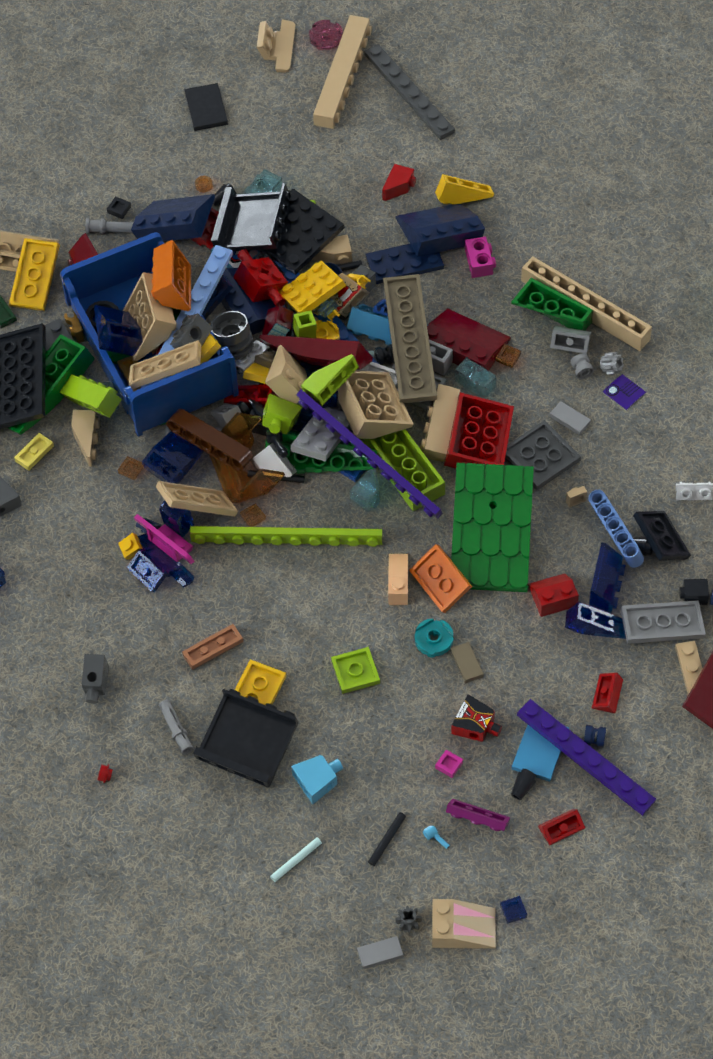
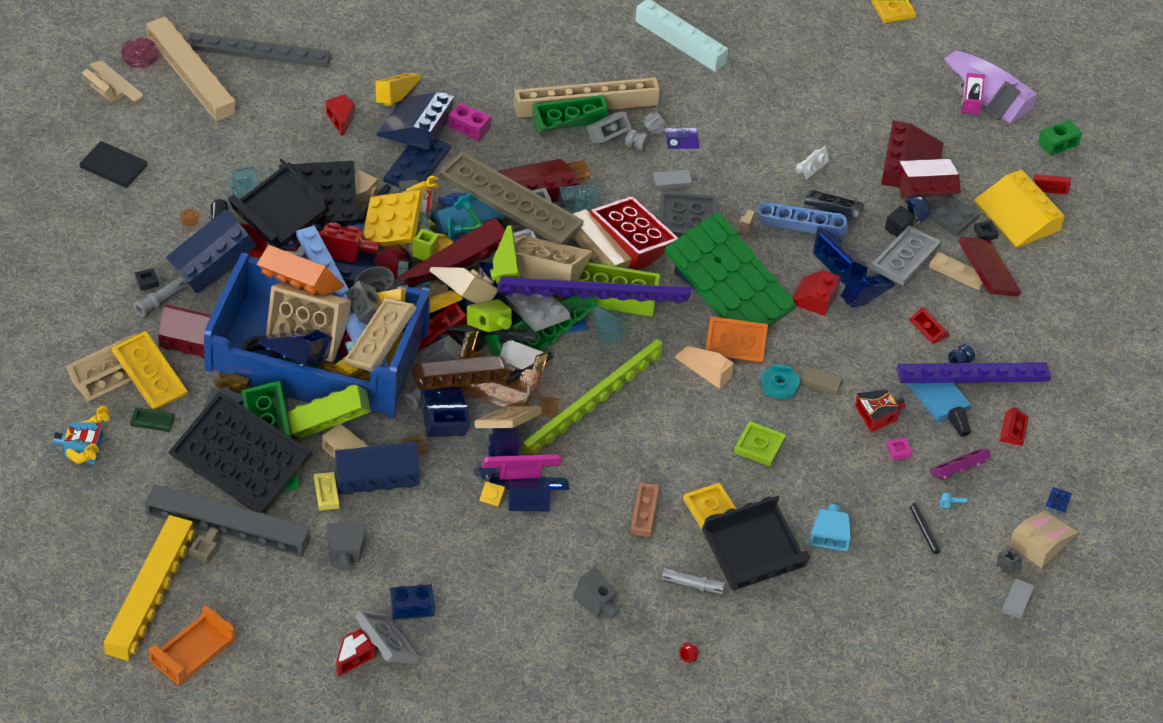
camera: 55 degrees left, 10 degrees down
(77, 463) = (376, 468): none -> dark blue slope
(296, 859) = (888, 592): light aqua bar -> none
(371, 338) = (469, 224): none -> teal plant

